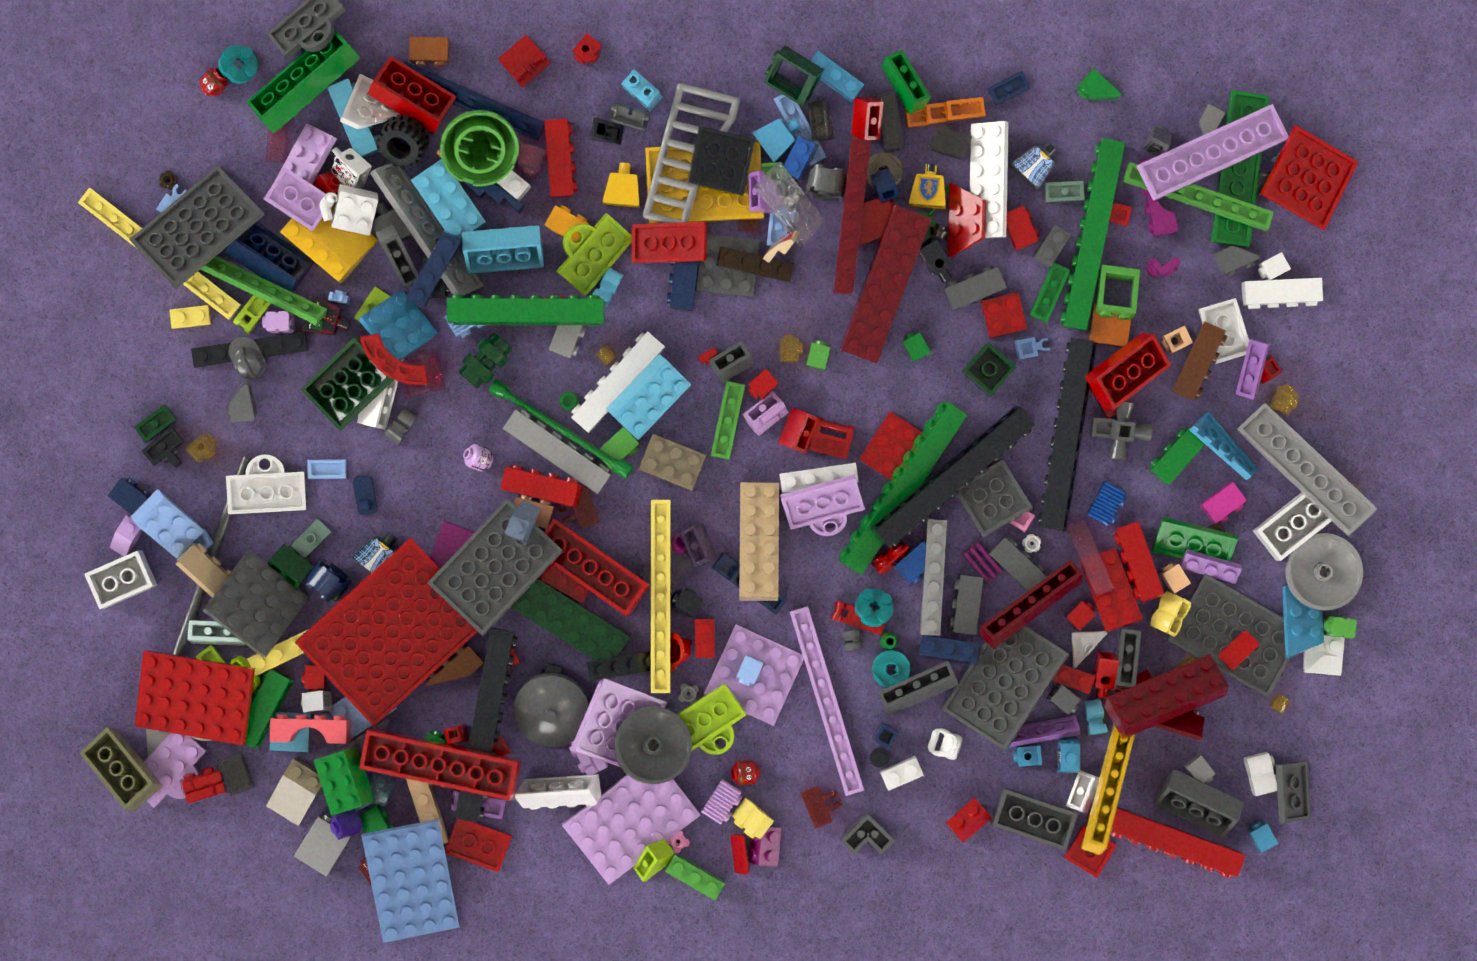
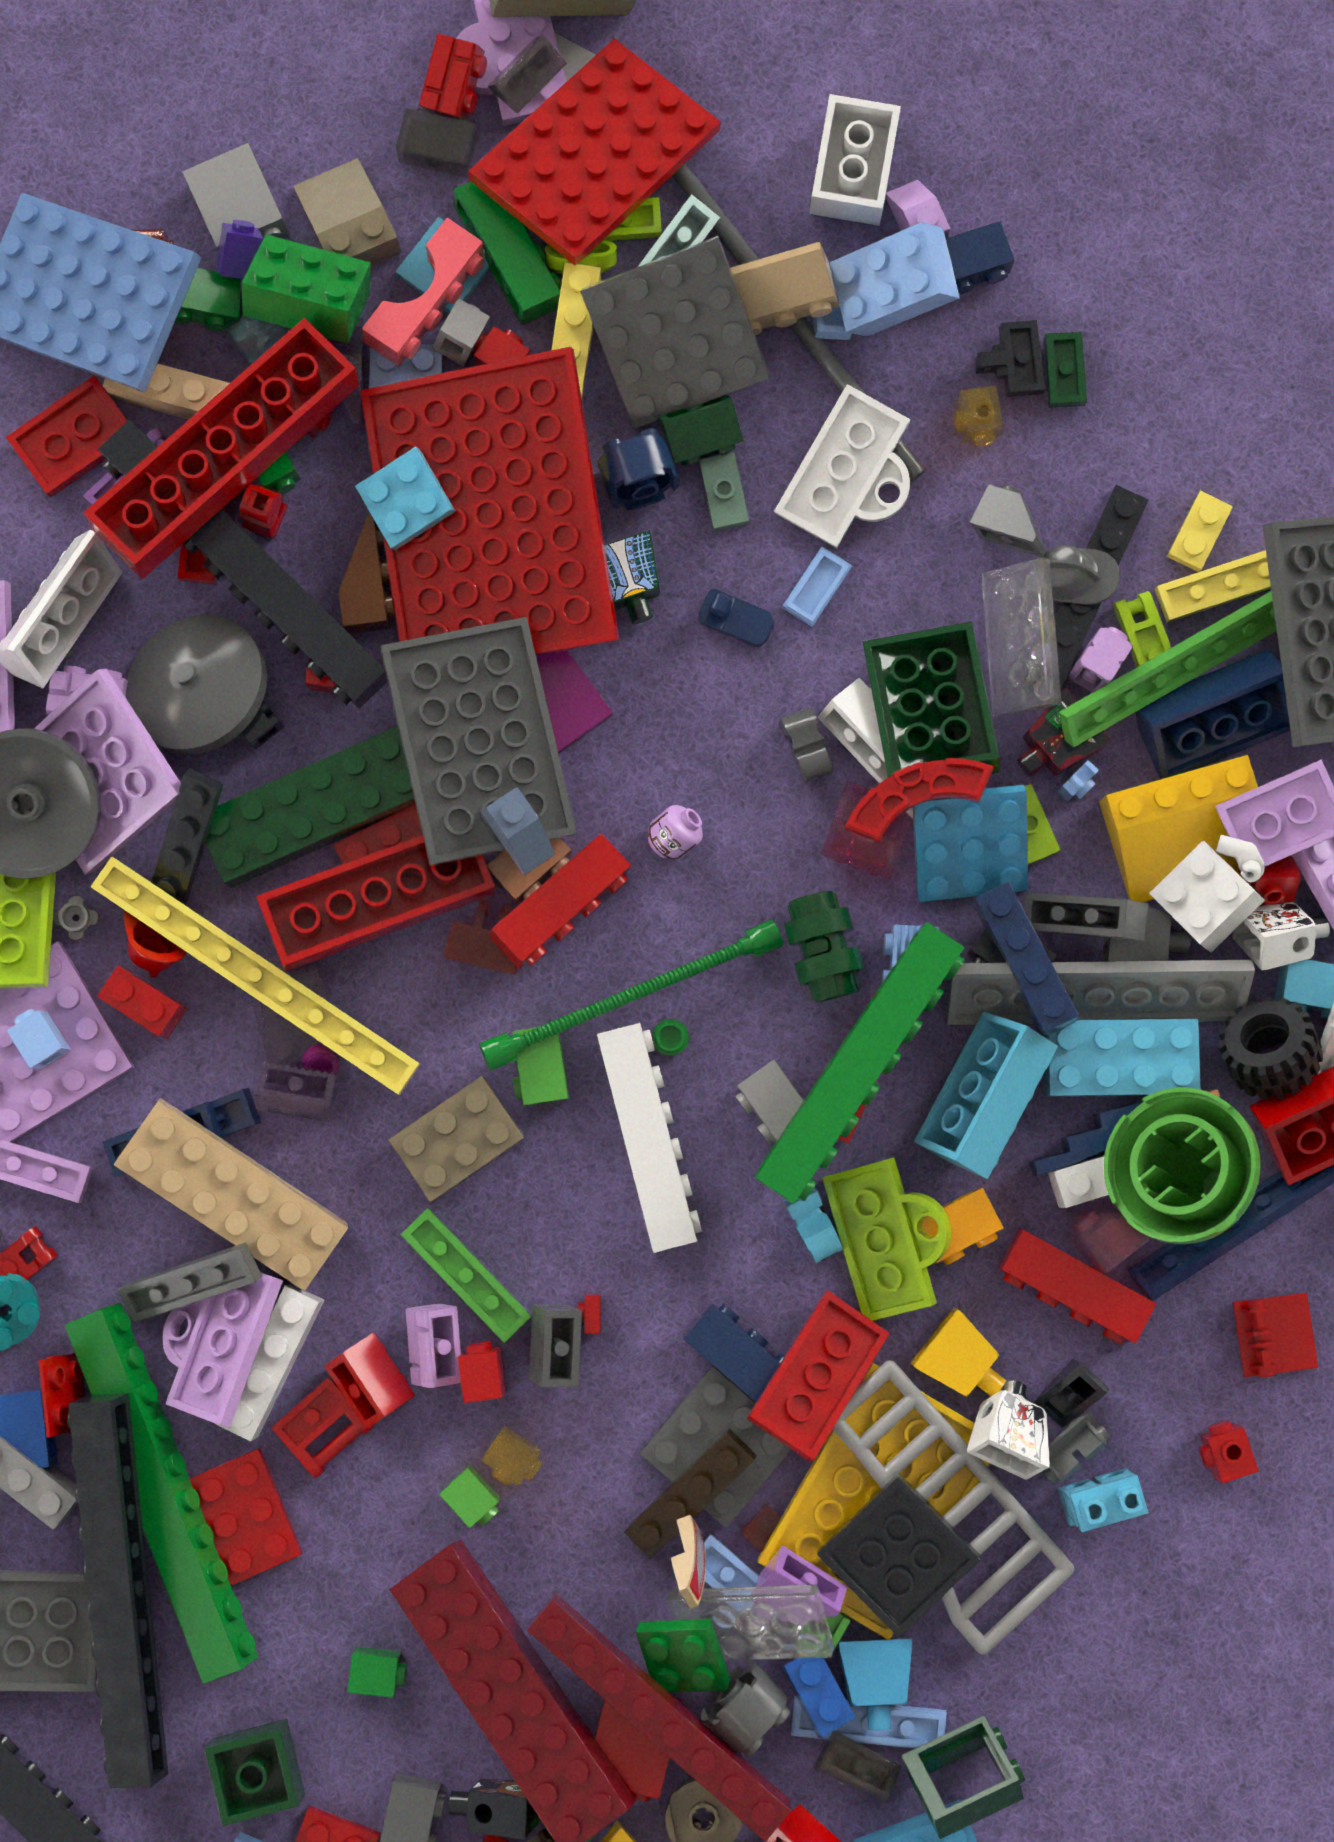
camera: 125 degrees right, 5 degrees down
(177, 753) = (527, 73): none -> clear smoke slope
(292, 363) = (1021, 637): none -> clear plate
(409, 673) = (405, 498): none -> medium azure plate
(556, 451) = (601, 964): light grey brick -> none
(606, 355) = (703, 1147): clear yellow hose -> none
(639, 146) = (1011, 1432): none -> white torso
(648, 396) = (588, 1171): medium azure brick -> none
(686, 602) = (219, 1010): black brick -> none
(808, 534) = (190, 1282): none -> dark grey plate
(822, 223) = (683, 1655): none -> green plate
(884, 185) = (676, 1807): dark blue brick -> none

